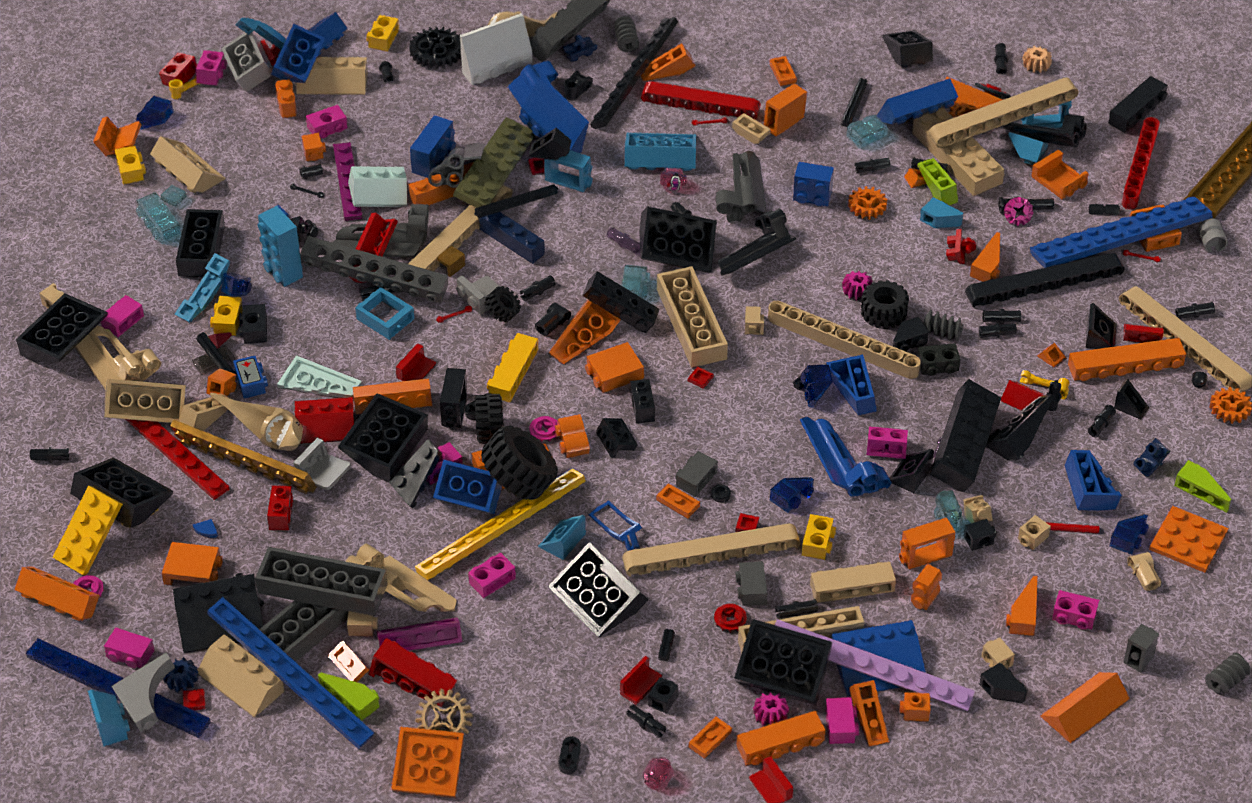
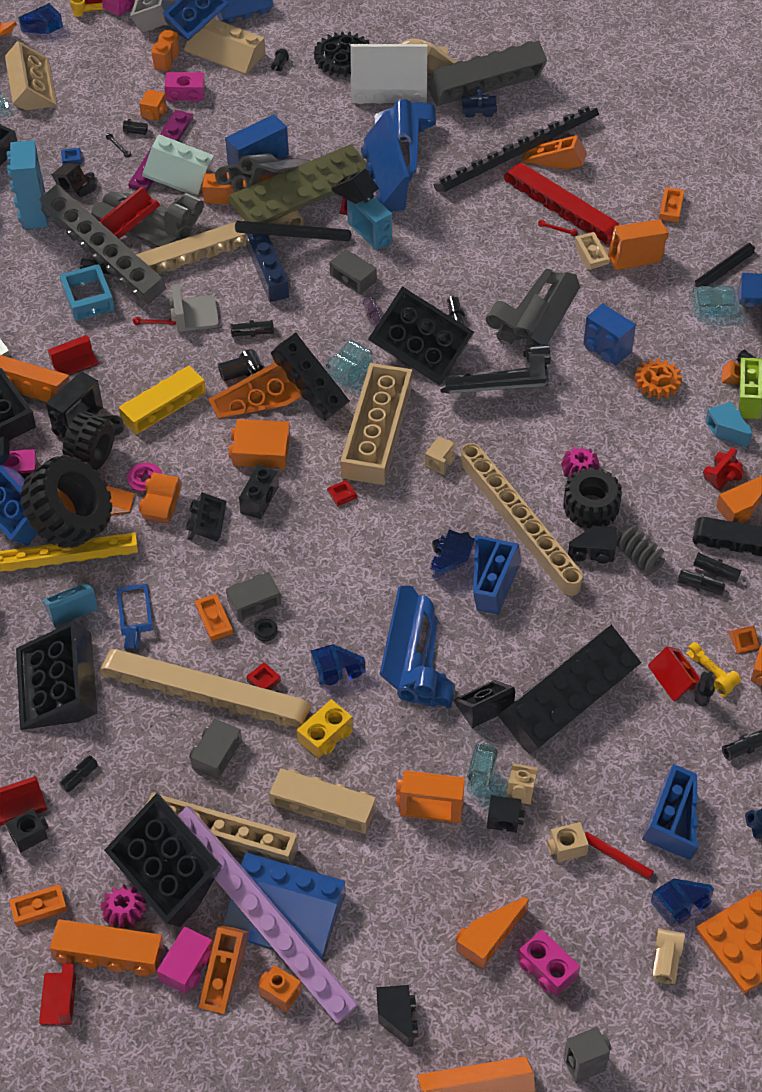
camera: 30 degrees right, 5 degrees up
(383, 33) = (304, 22): yellow brick -> none
(452, 259) = (189, 266): pearl gold panel -> none
(494, 304) = (210, 325): black tyre -> none
(576, 85) = (448, 139): black piece -> none
(582, 214) = (353, 271): none -> dark grey brick
(626, 34) = (536, 107): dark grey piece -> none
(661, 151) = (481, 237): dark azure slope -> none
(673, 179) = (470, 271): clear pink head -> none
(727, 610) = (171, 766): red gear -> none
(796, 608) = (241, 801): black pin -> none
(872, 165) = (694, 340): black axle -> none
(887, 442) = (479, 655): dark pink brick -> none
(926, 587) = (391, 849): orange brick -> none
(939, 359) = (608, 586): pearl dark grey brick -> none
(996, 652) = (418, 972): tan brick -> none
(1018, 435) = (629, 717): black wedge -> none

